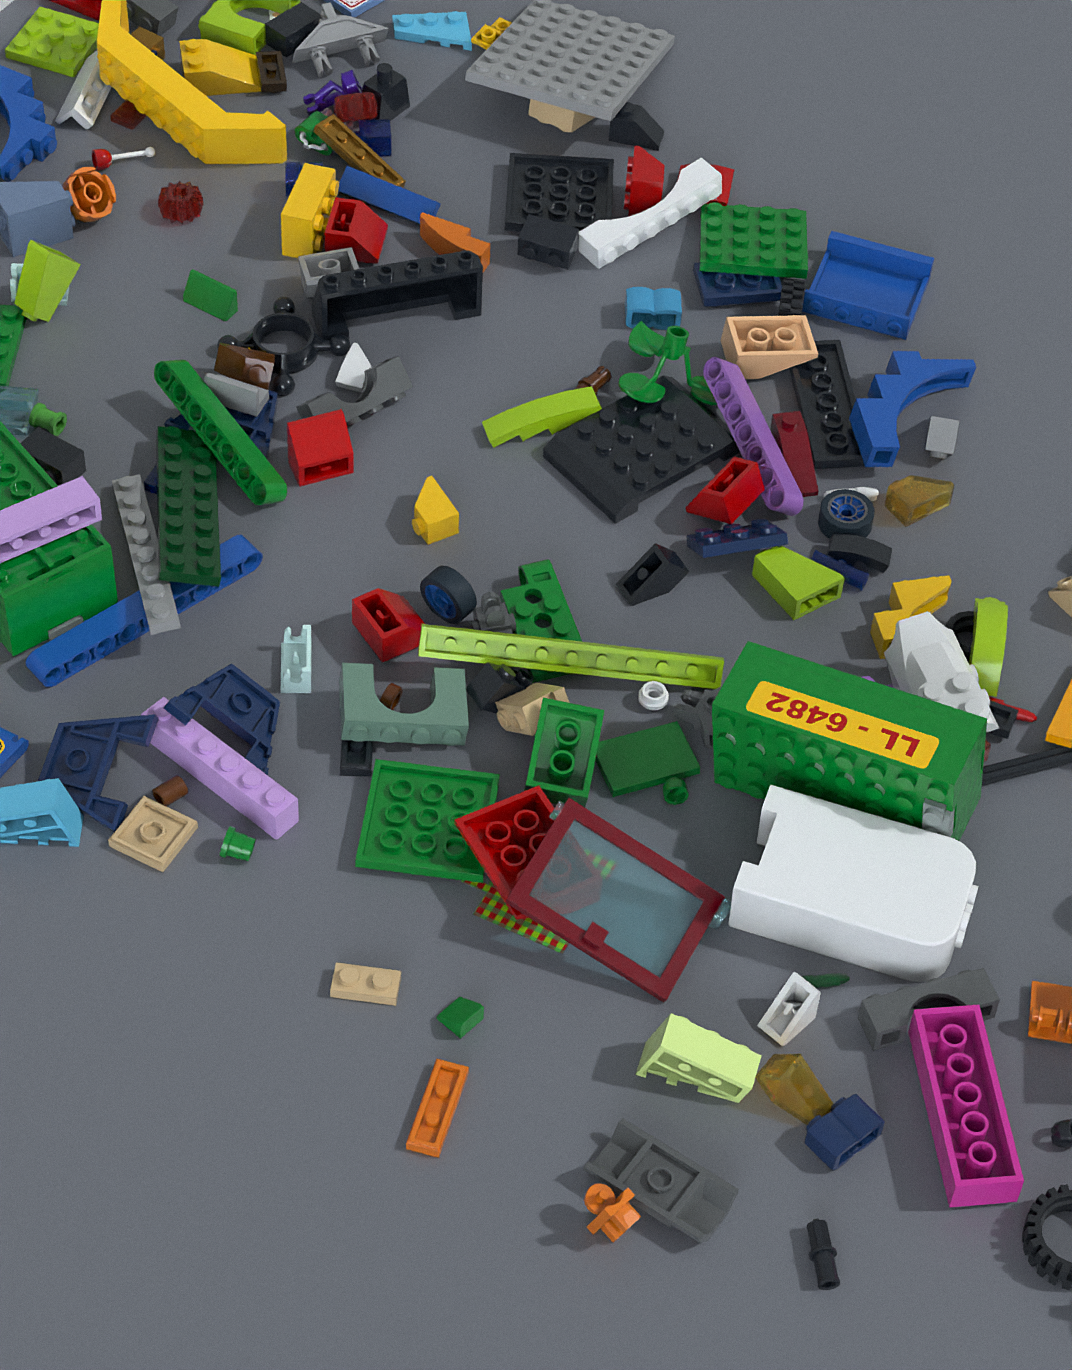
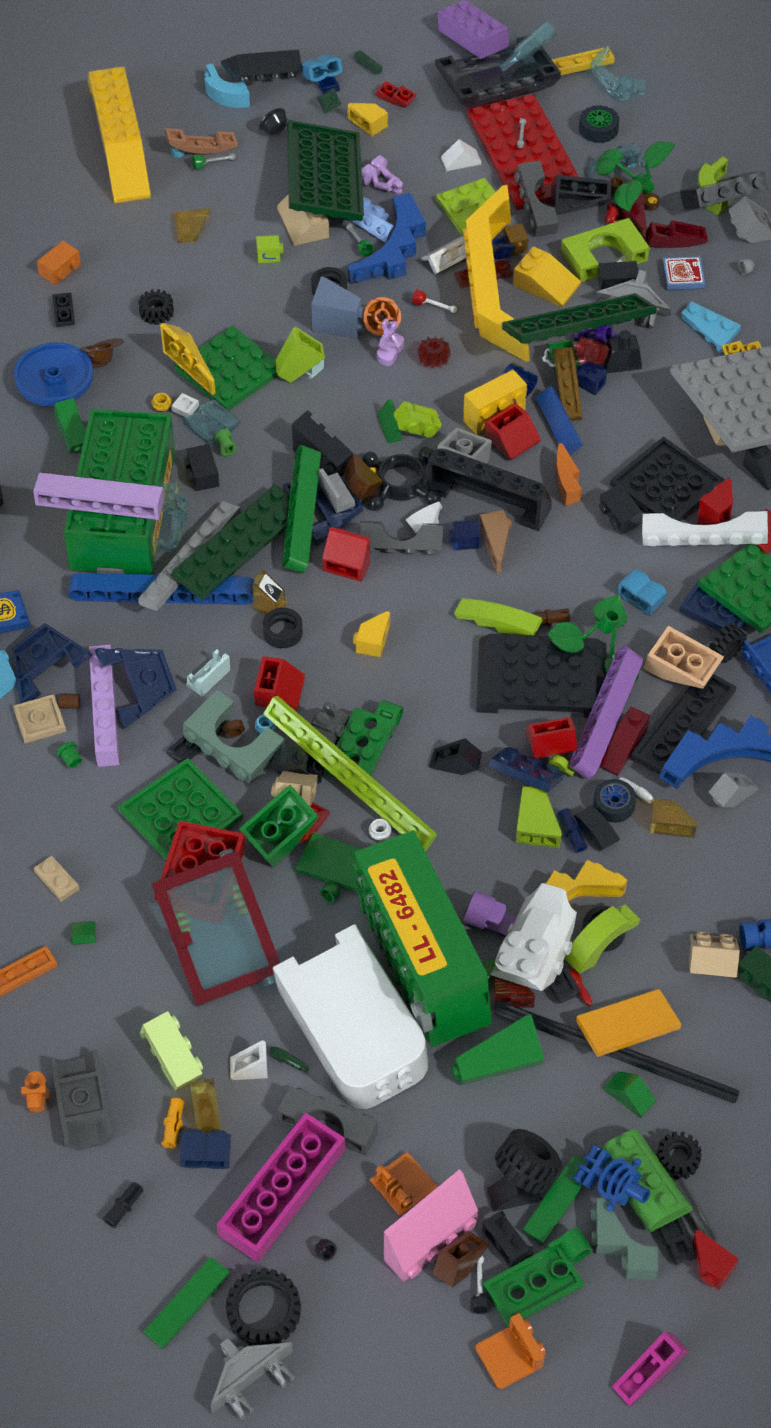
camera: 45 degrees right, 5 degrees up
(123, 218) = (389, 344): none -> lavender piece
(146, 349) = (310, 434): none -> black wedge
(245, 273) = (417, 419): none -> lime brick
(271, 71) = (577, 295): dark brown plate -> none
(280, 541) = (267, 594): none -> clear yellow slope
(318, 78) = (579, 318): none -> dark green plate
(327, 582) = (278, 615): none -> black tyre
(417, 673) = (261, 721): none -> medium azure plate
(419, 357) = (465, 535): none -> clear blue brick
(448, 594) = (323, 687): black wheel -> none
(450, 341) = (495, 532): none -> medium nougat slope
(759, 512) = (562, 764): none -> lime piece
(778, 1133) = (173, 1123): none -> light orange pin
(995, 1298) = (186, 1303): none -> green tile
(1016, 818) = (503, 1053): none -> green slope

